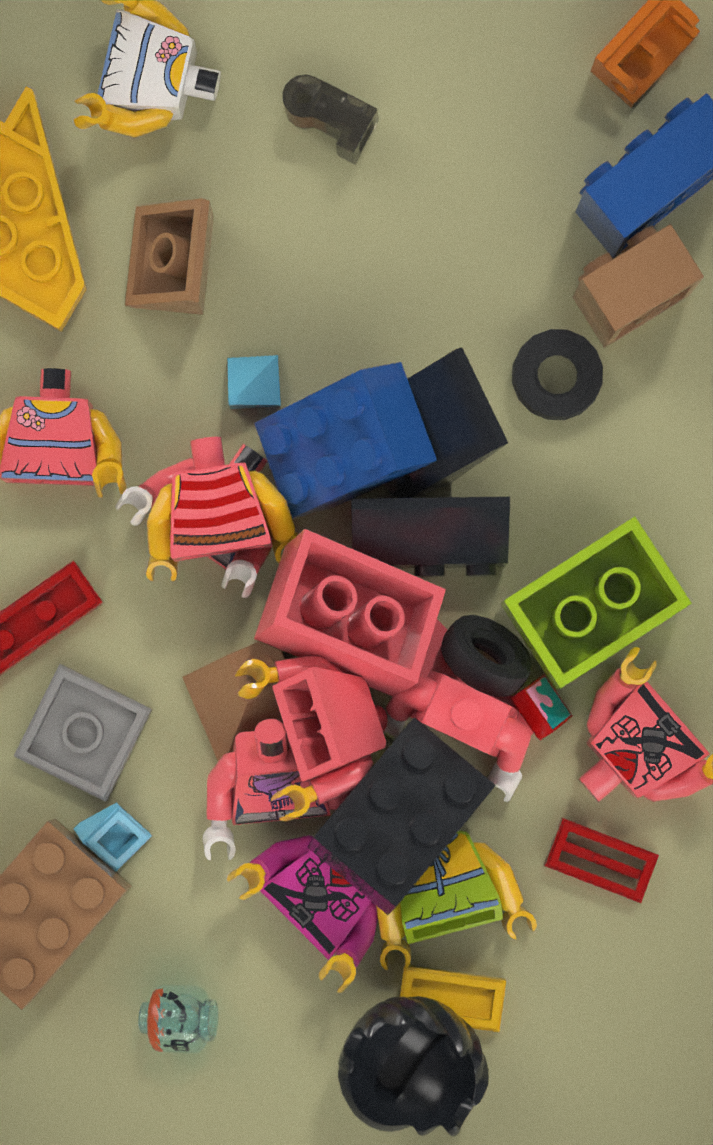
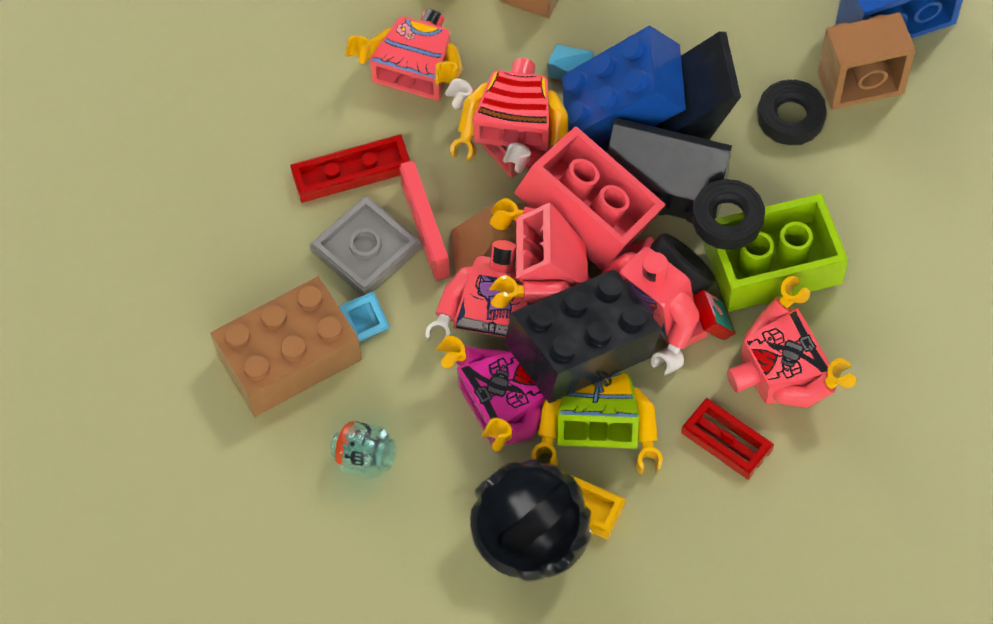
camera: 20 degrees right, 25 degrees down
(145, 681) = (424, 221): none -> coral tile
(562, 585) = (728, 236): none -> black tyre

